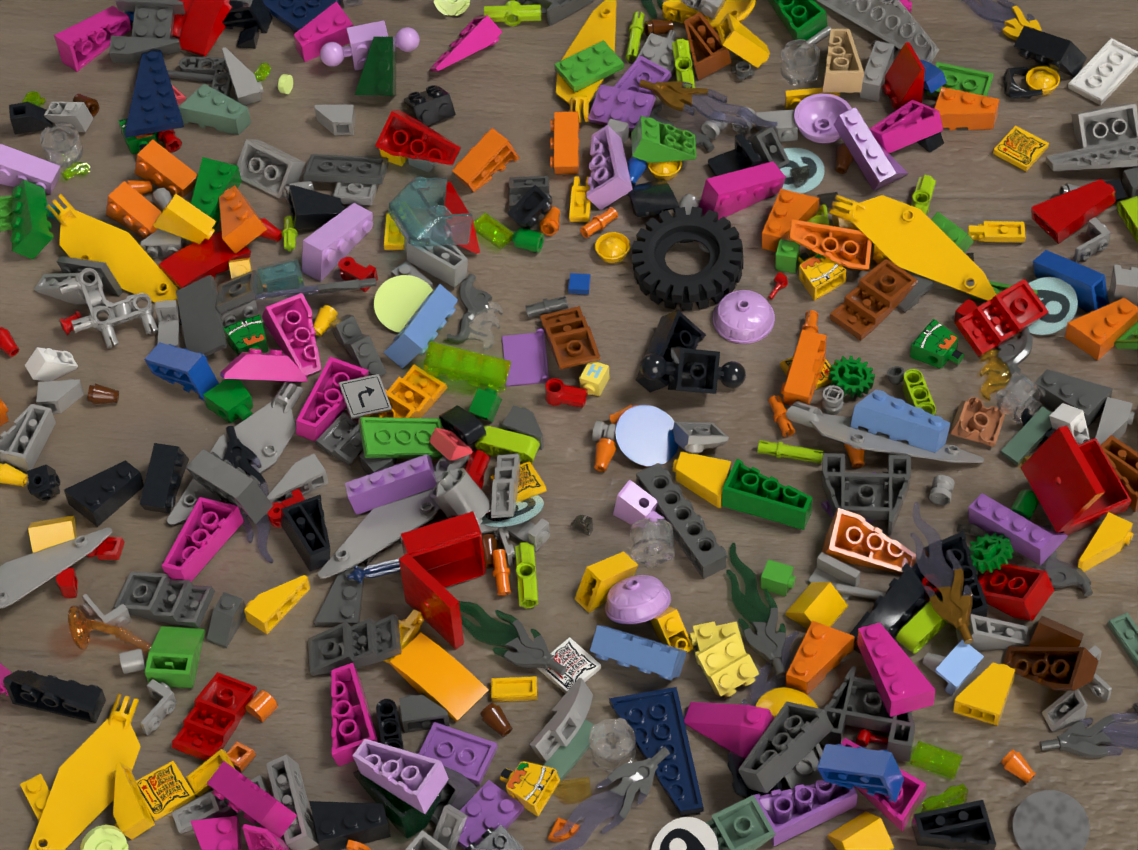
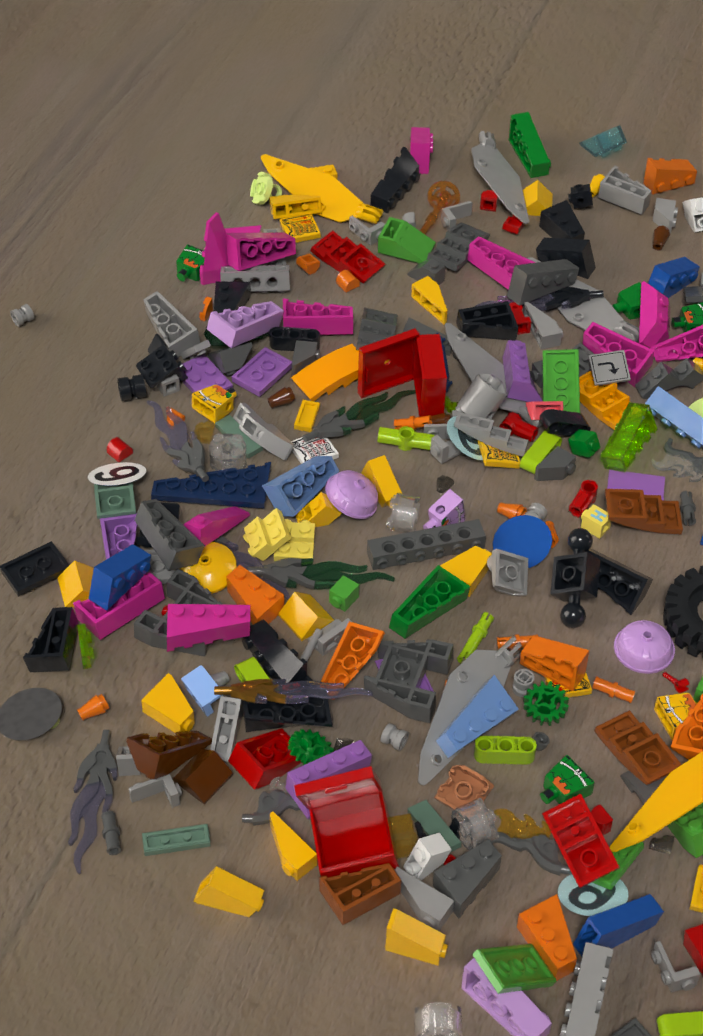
camera: 100 degrees right, 5 degrees down
(200, 776) = (303, 247): yellow tile -> none
(936, 759) = (128, 657): clear neon green plate -> none

